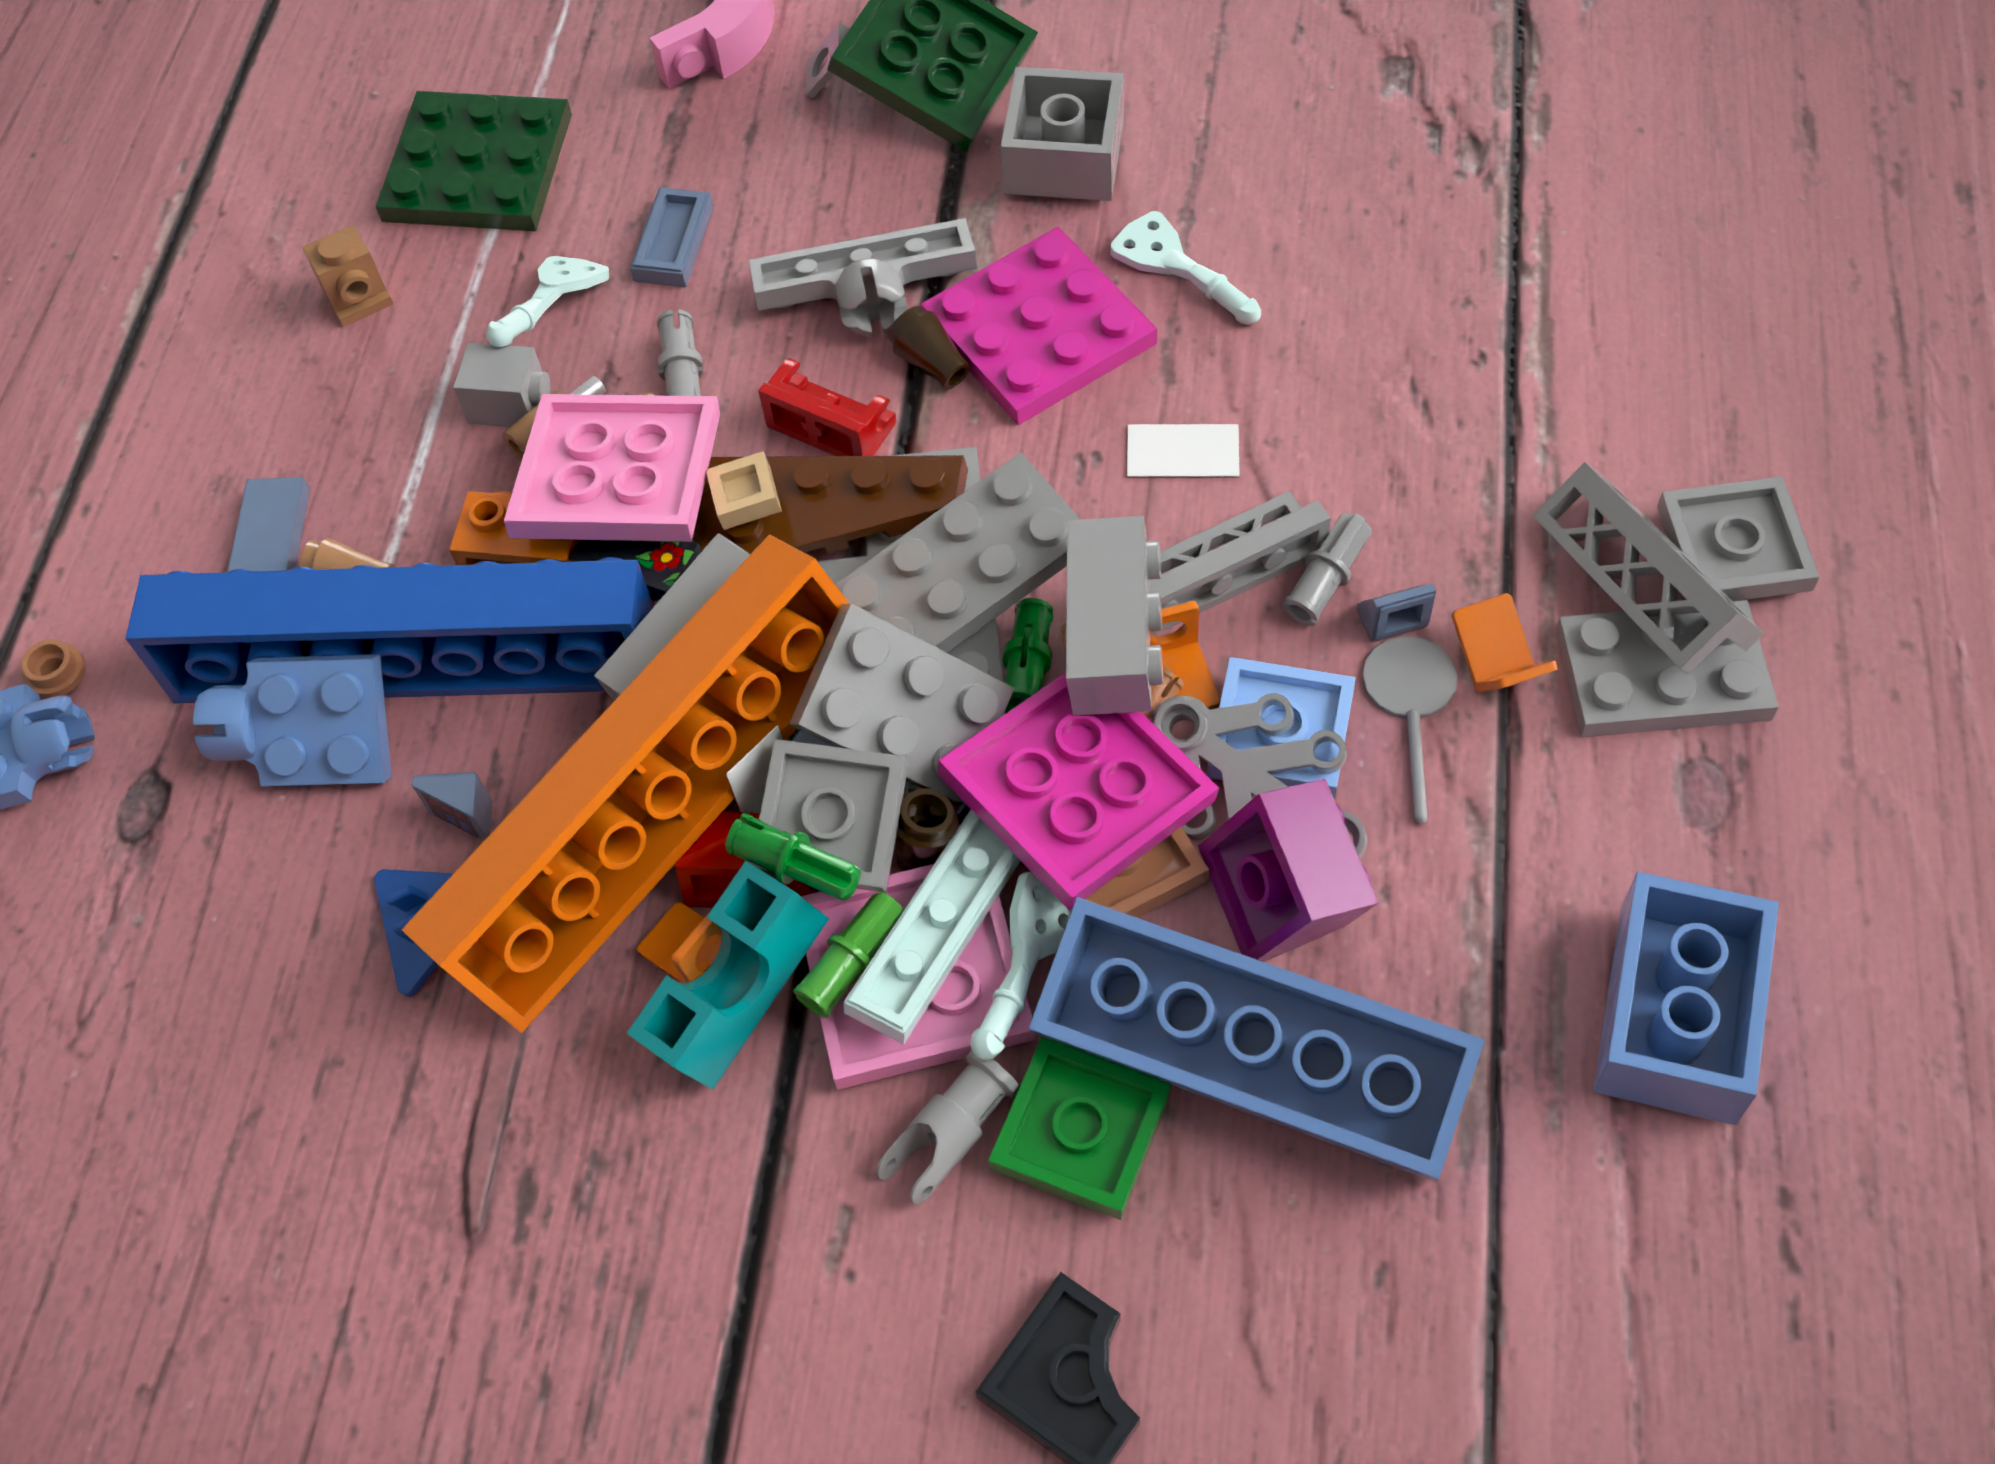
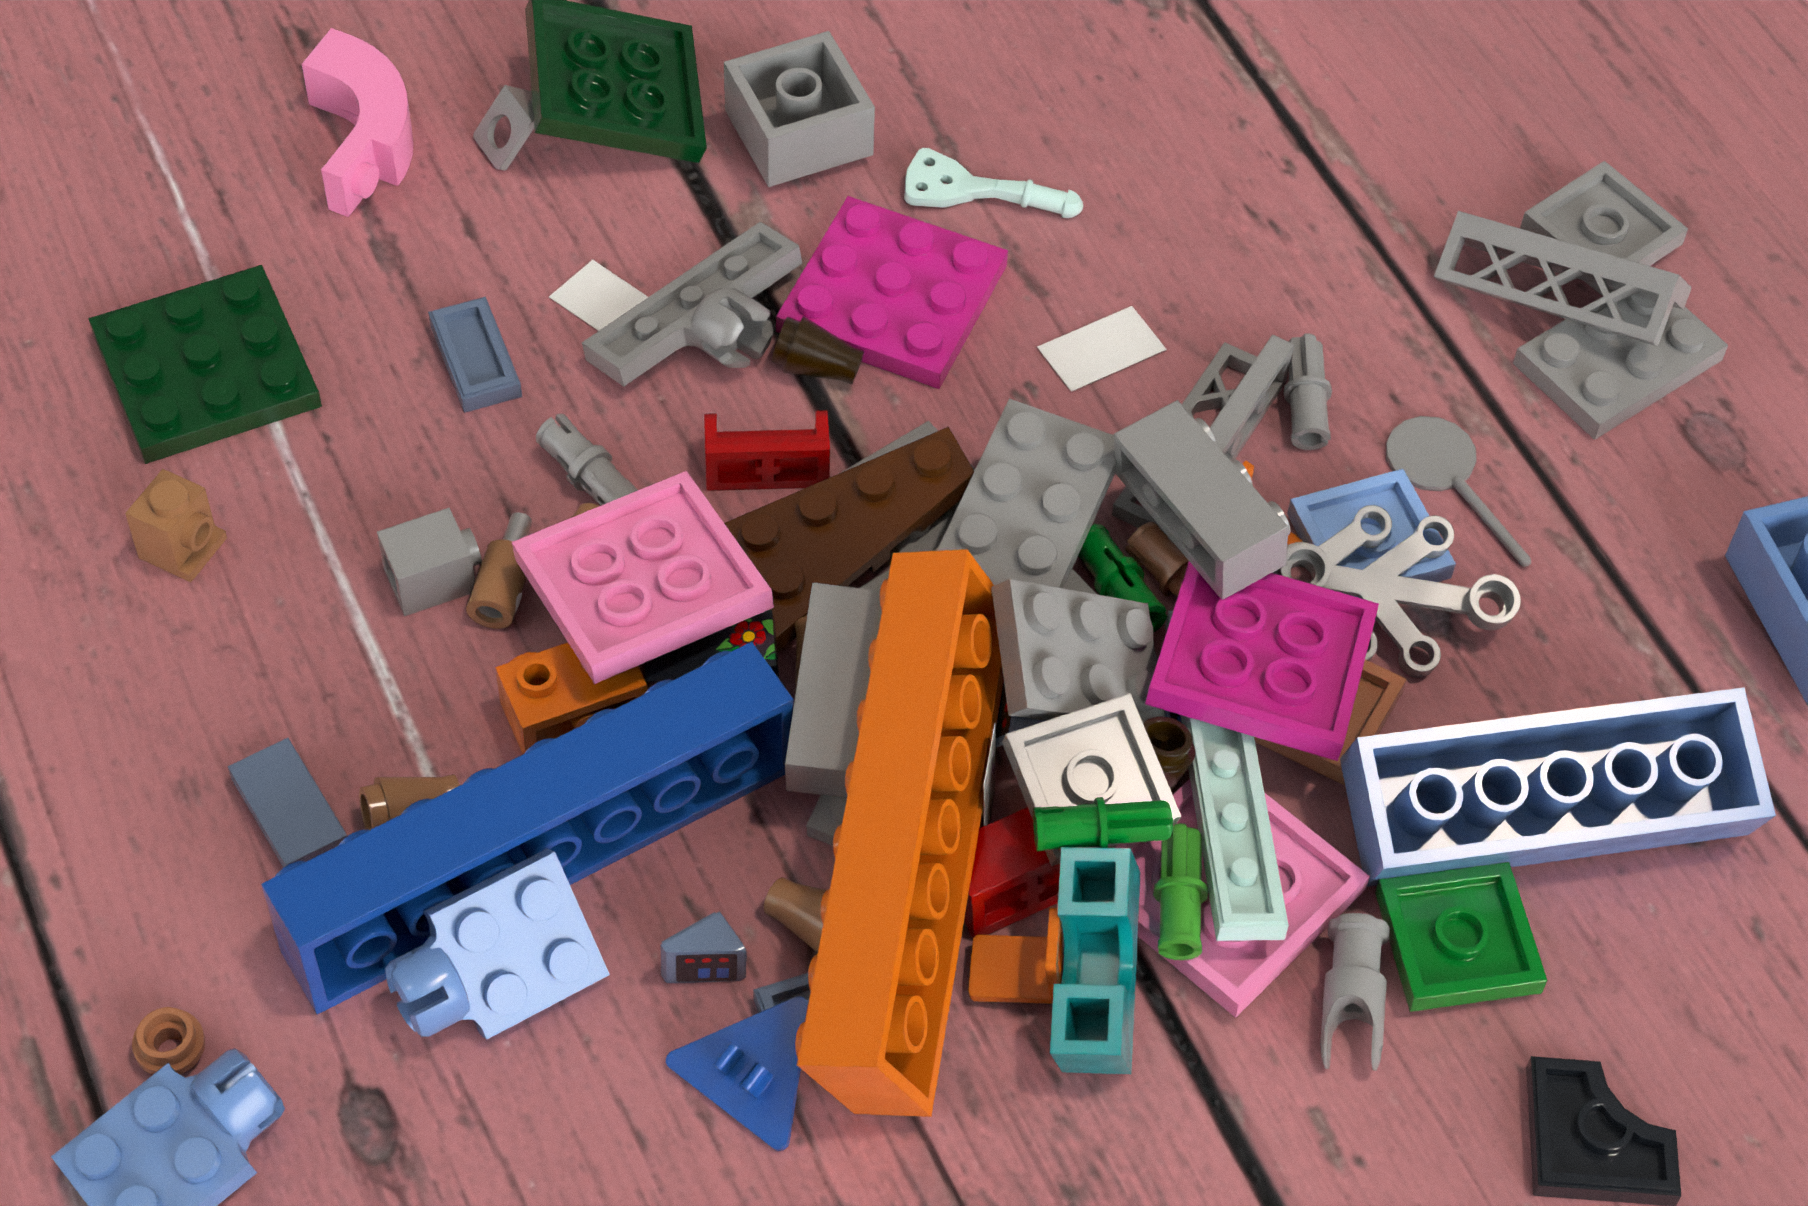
camera: 40 degrees left, 5 degrees down
(555, 277) = (402, 437): light aqua piece -> none
(743, 490) = (779, 543): tan plate -> none
(804, 226) = (597, 295): none -> white sticker
(1027, 948) = (1311, 799): light aqua piece -> none
(1287, 870) = (1479, 644): magenta slope -> none
(1397, 611) = (1386, 400): sand blue slope -> none
(1496, 644) = (1489, 397): orange bracket -> none

